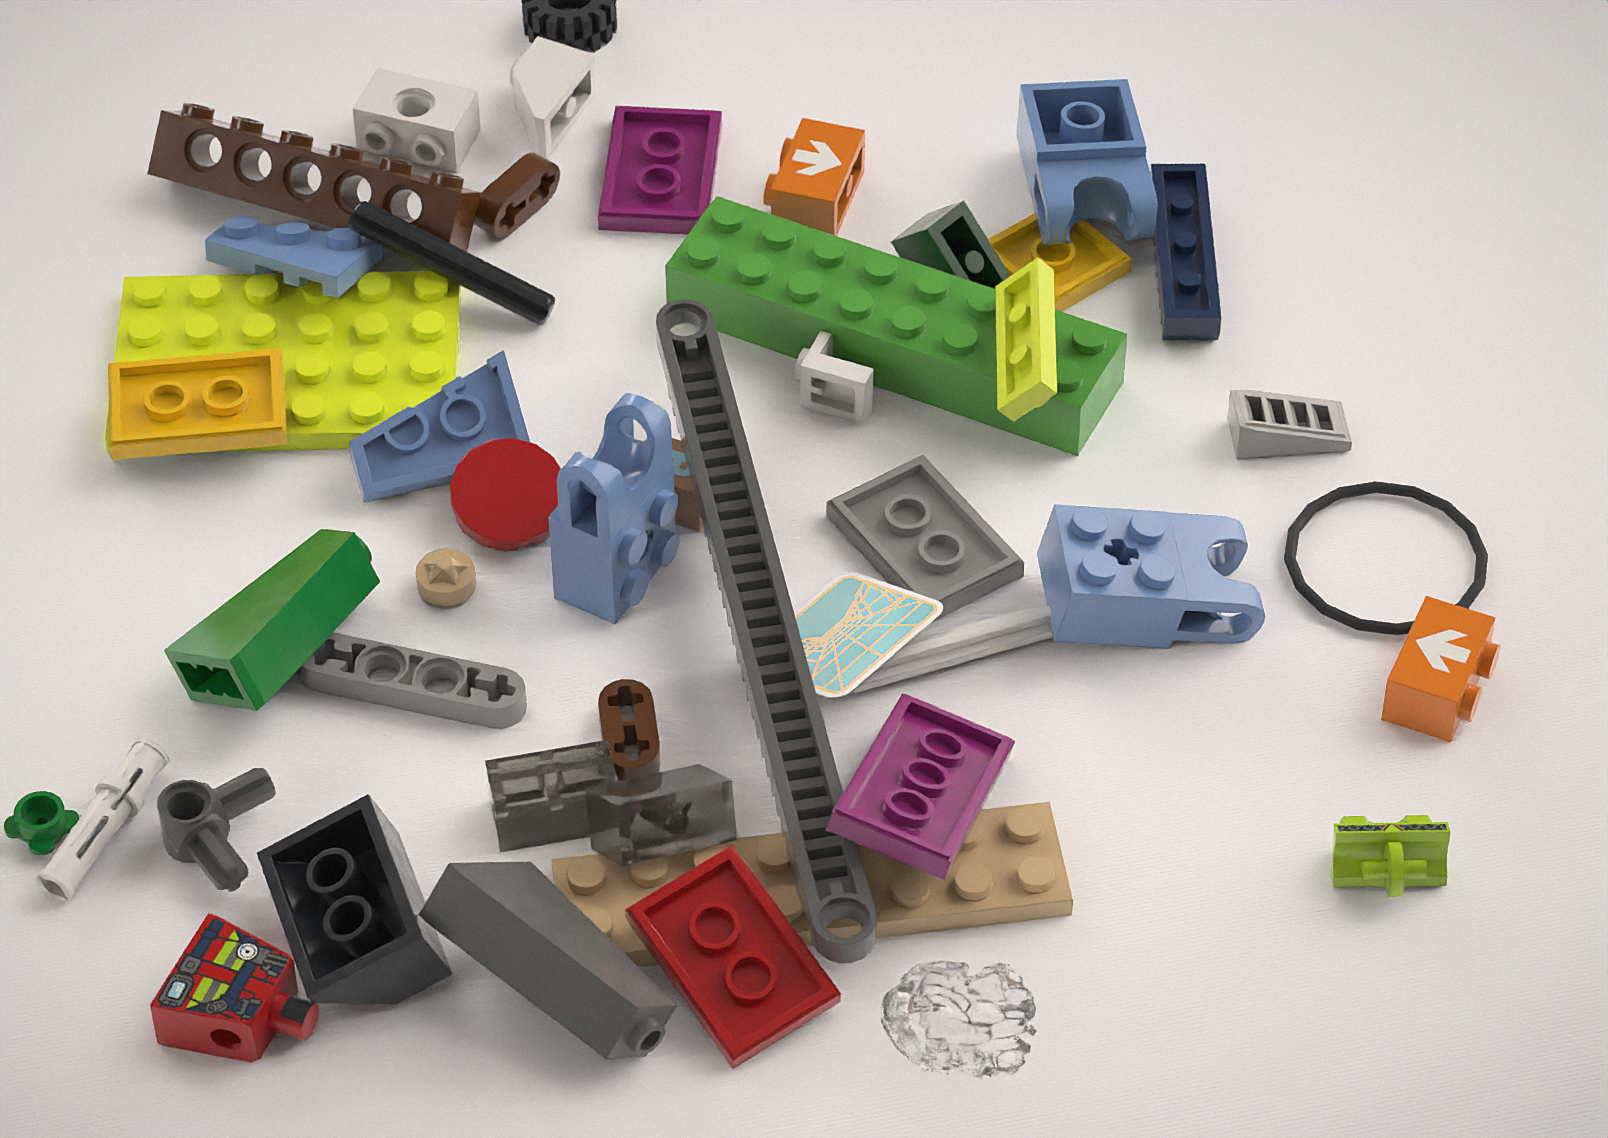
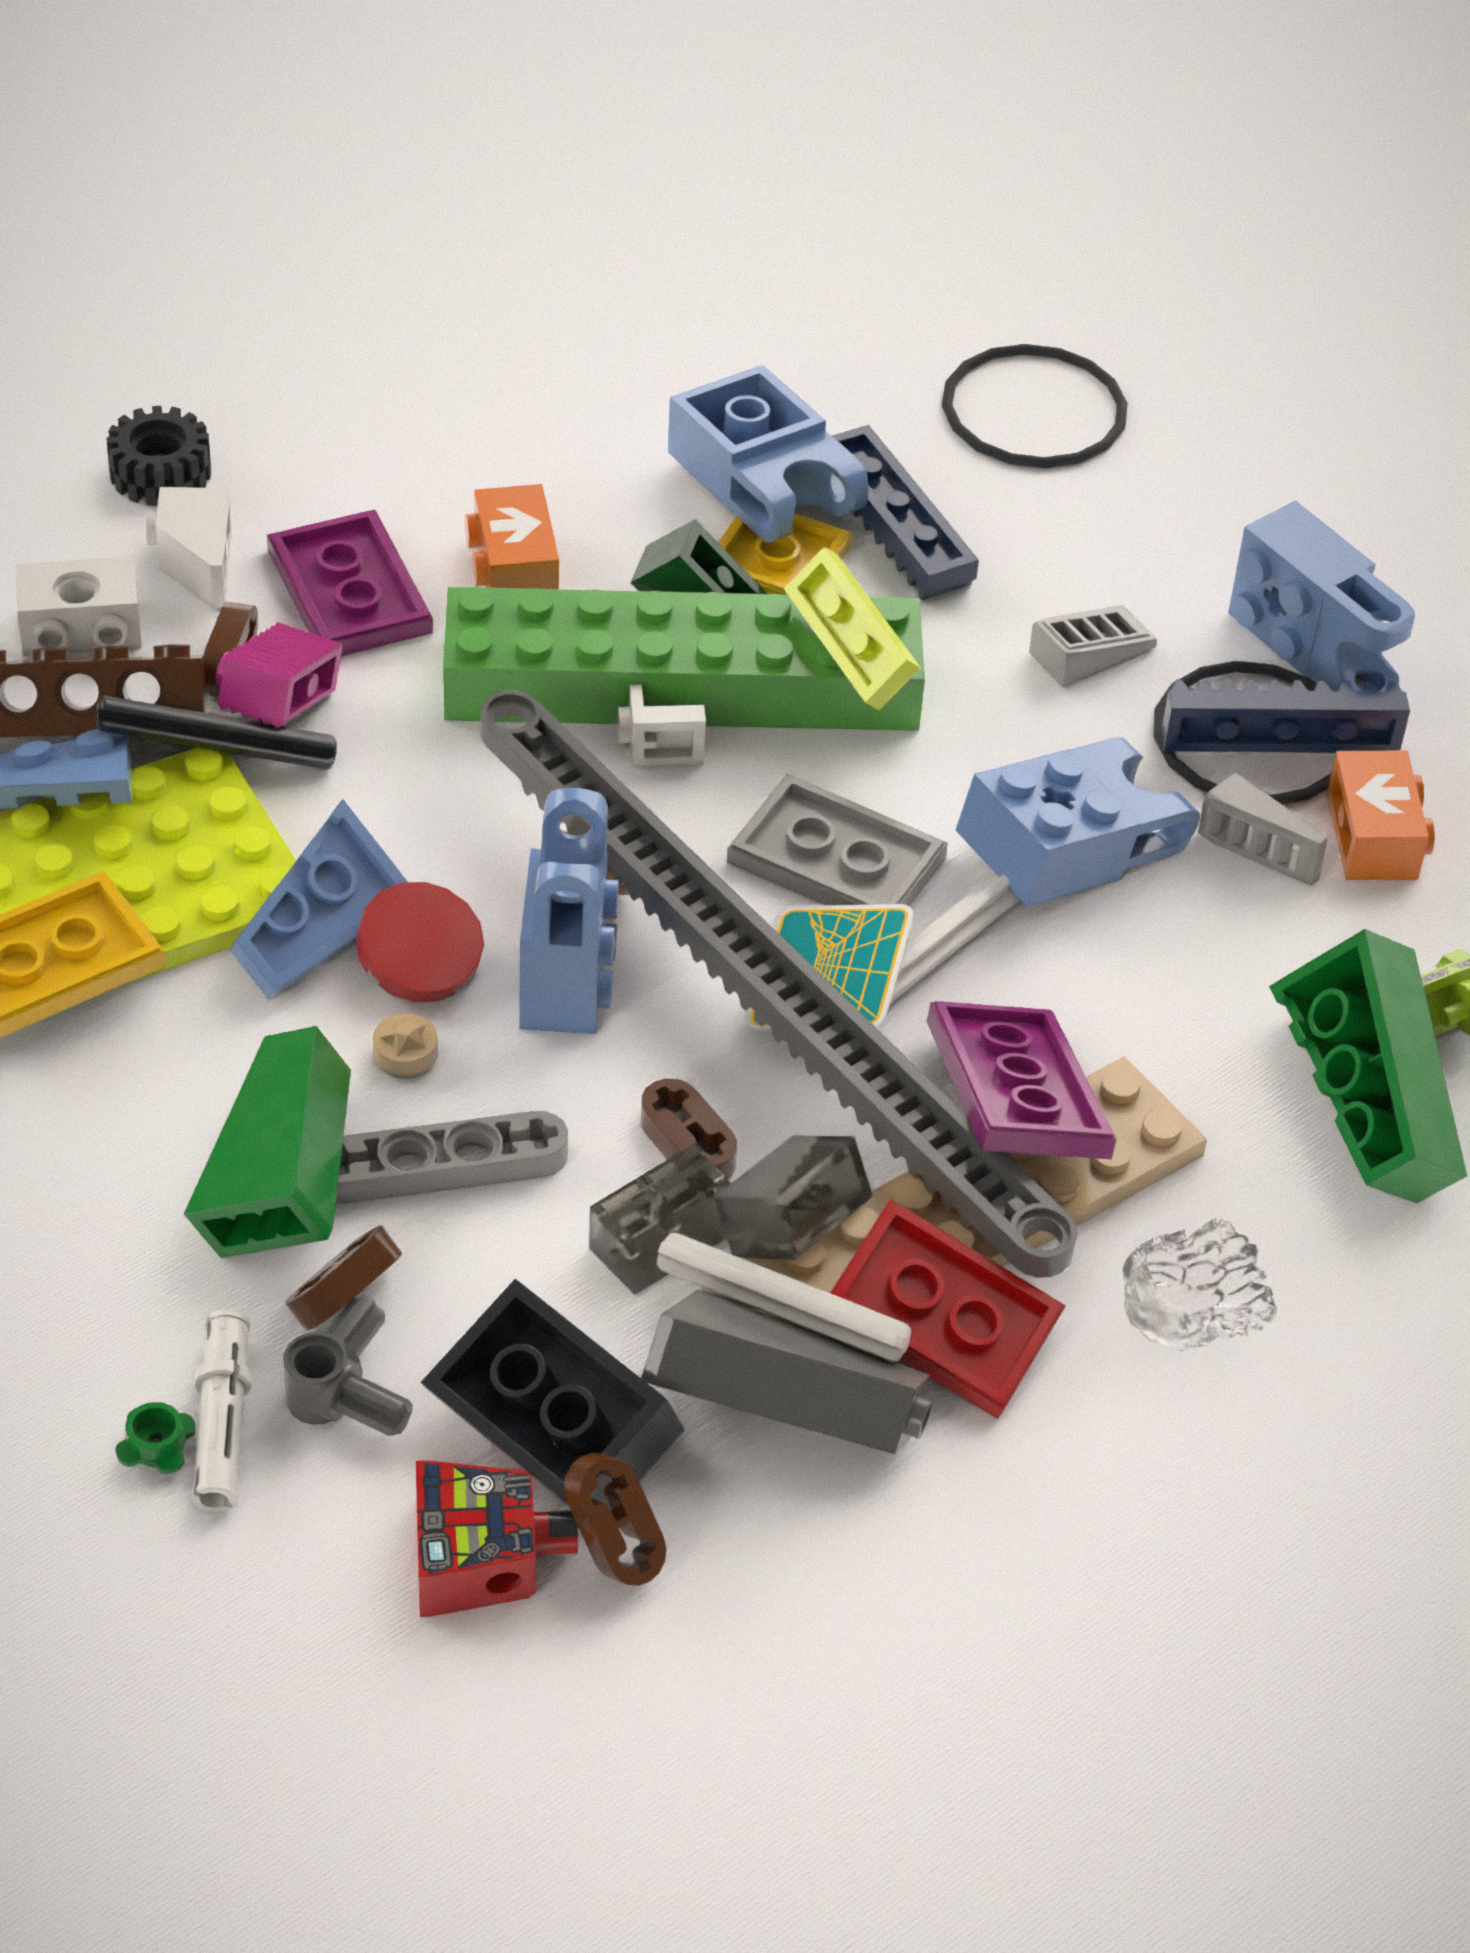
camera: 30 degrees left, 0 degrees up
(262, 748) = (343, 1278): none -> reddish brown beam
(320, 1022) = (628, 1512): none -> reddish brown beam
(533, 229) = (278, 674): none -> dark pink brick
(594, 895) = (784, 1297): none -> white axle
(1261, 888) = (1378, 1061): none -> green wedge
(1314, 640) = (1247, 823): none -> light grey slope
(1386, 251) = (1030, 460): none -> black piece
(1405, 552) = (1284, 719): none -> dark blue gear
(1505, 457) = (1317, 600): none -> medium blue brick

